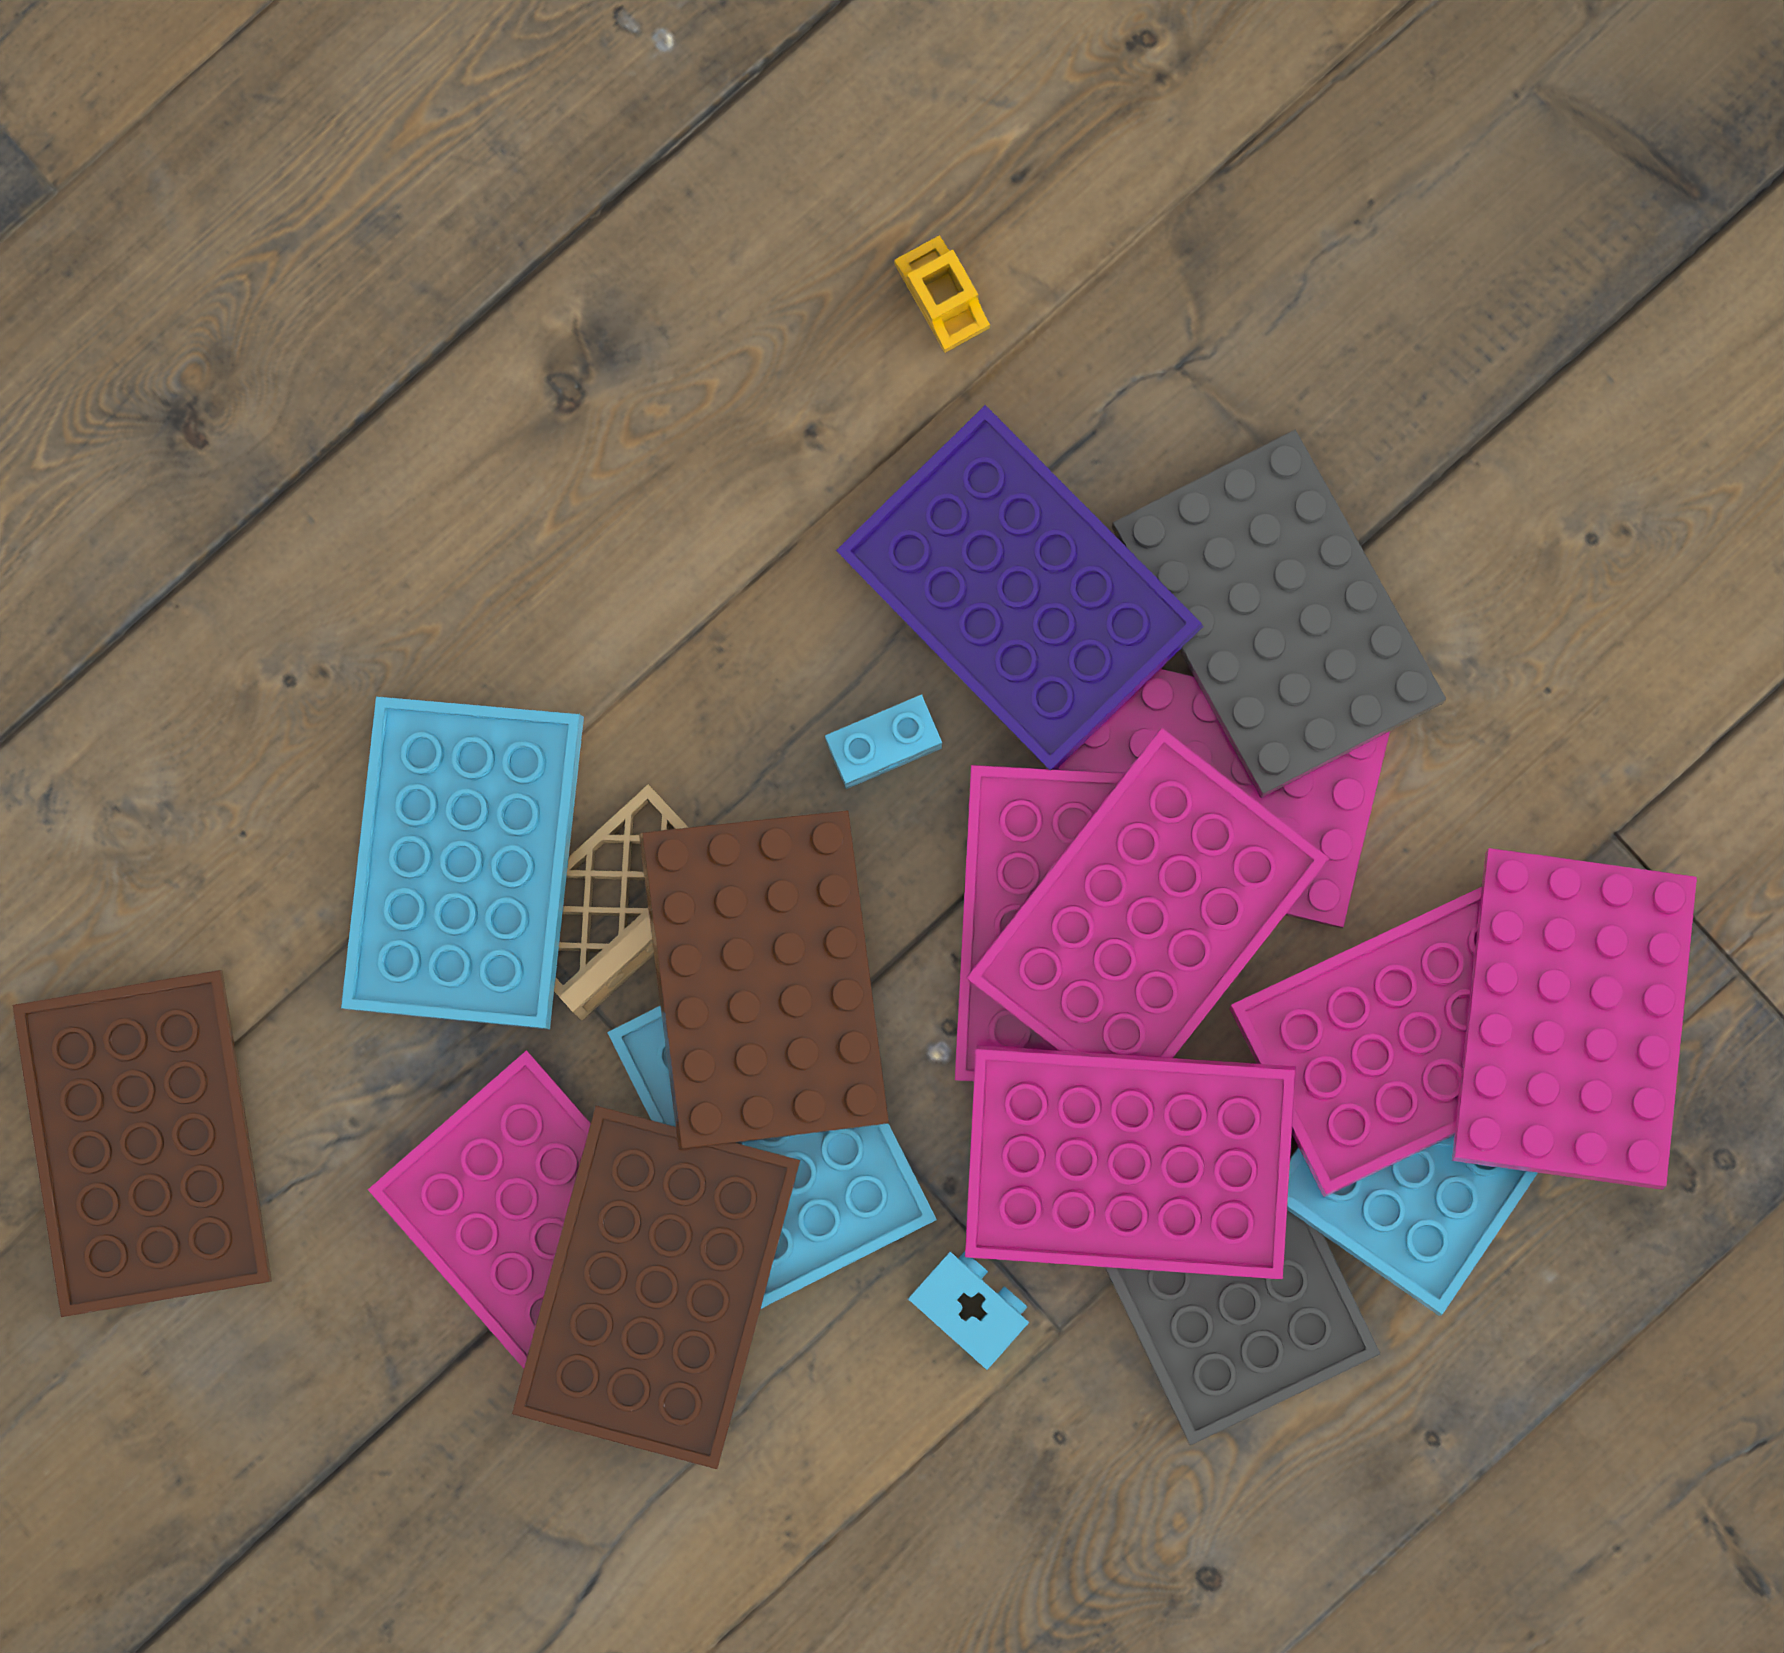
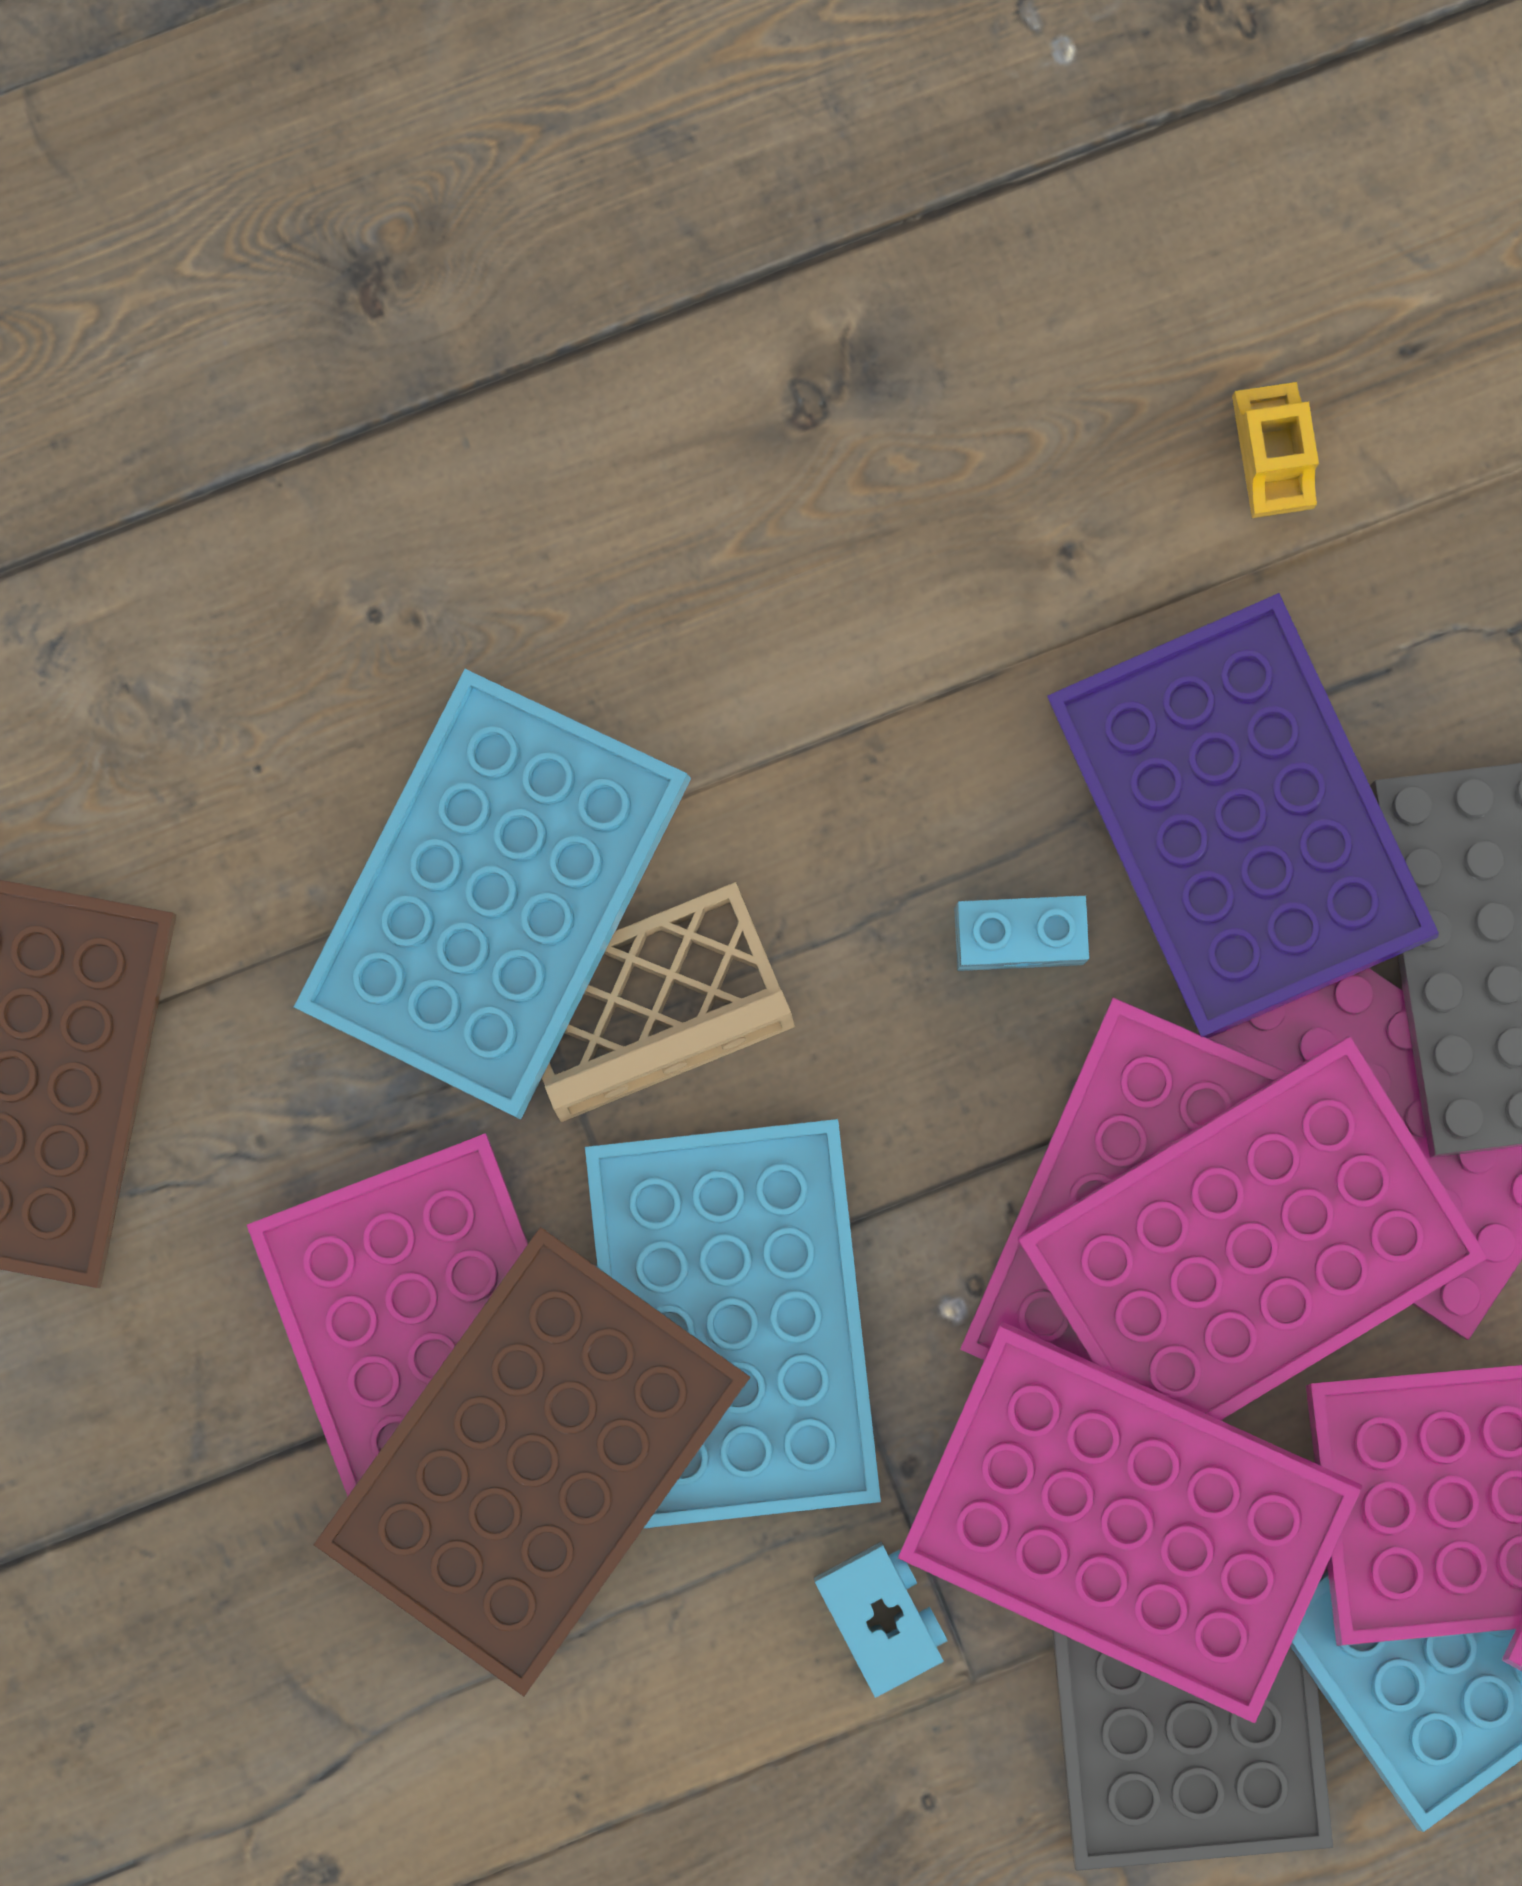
camera: 20 degrees right, 0 degrees up
(763, 979) = (784, 1154): reddish brown plate -> none

